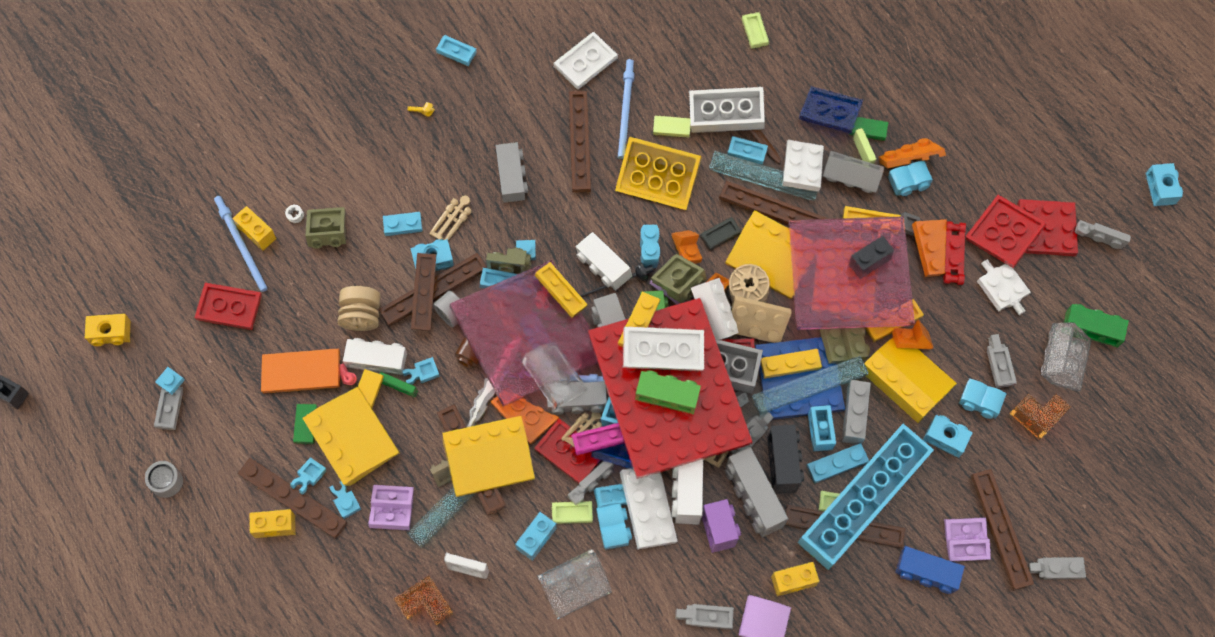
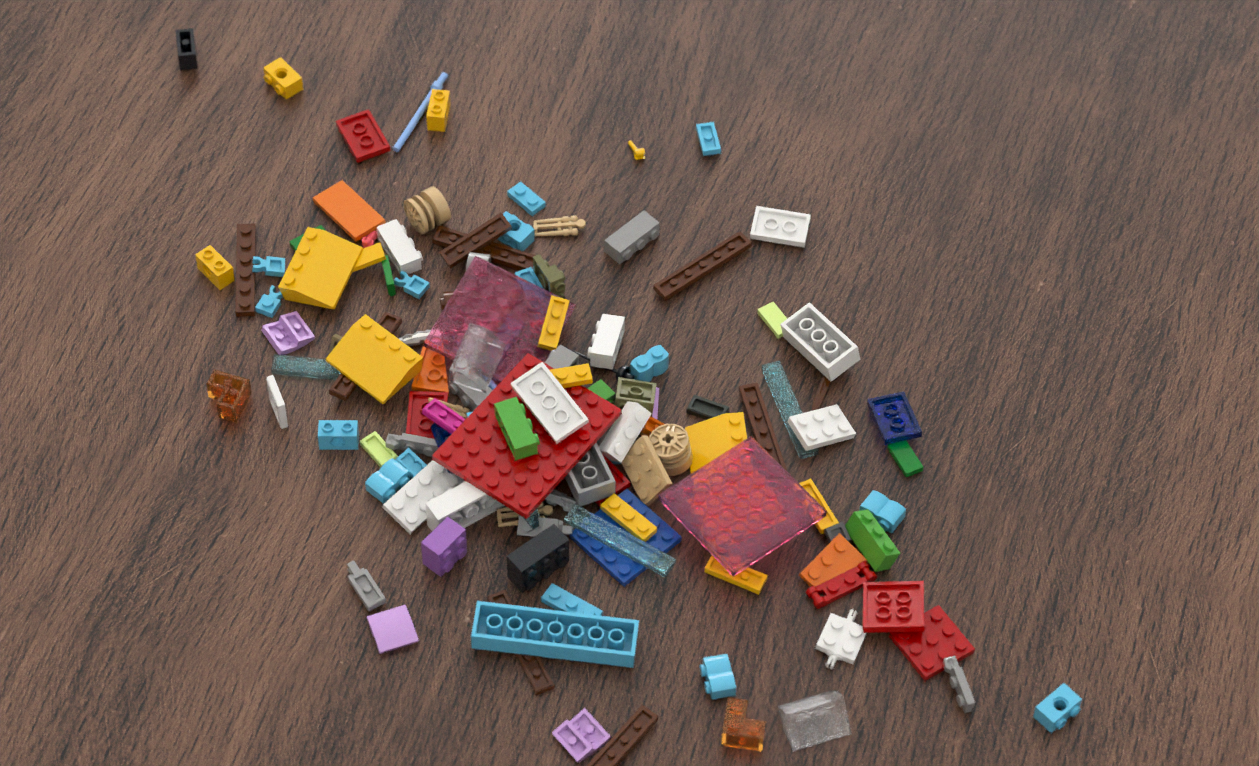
camera: 55 degrees right, 15 degrees down
(163, 479) = (196, 183): light grey piece -> none
(168, 409) = (256, 150): light grey hinge -> none
(169, 380) = (273, 137): medium azure plate -> none
(298, 218) = (471, 132): white bush -> none
(326, 227) = (478, 152): olive plate -> none
(527, 245) = (575, 289): medium azure plate -> none
(575, 583) = (320, 483): clear slope -> none
(628, 78) = (792, 264): light blue bar -> none
(658, 173) = (723, 333): yellow slope -> none
(686, 245) = (672, 391): orange slope -> none
(747, 150) = (801, 382): medium azure plate -> none
(755, 30) = (923, 325): yellowish green tile -> none
(756, 492) = (490, 557): light grey brick -> none
(795, 579) = (443, 627): yellow brick -> none
(821, 428) = (589, 571): medium azure brick -> none
(844, 344) = (682, 546): olive plate -> none
(853, 172) = (847, 464): light grey brick -> none
(856, 412) = (626, 590): light grey brick -> none
(863, 146) = (880, 463): yellowish green tile -> none
(871, 257) = (760, 502): black brick -> none
(908, 378) = (693, 612): yellow slope -> none
(912, 338) = (732, 596): orange slope -> none
(920, 150) = (910, 500): orange wing -> none
(929, 570) = (529, 720): blue brick -> none
(935, 203) = (872, 540): none -> bright green brick
(937, 438) = (660, 679): medium azure brick -> none
(1000, 363) = (764, 673): light grey hinge -> none
(1098, 325) = (866, 726): green brick -> none

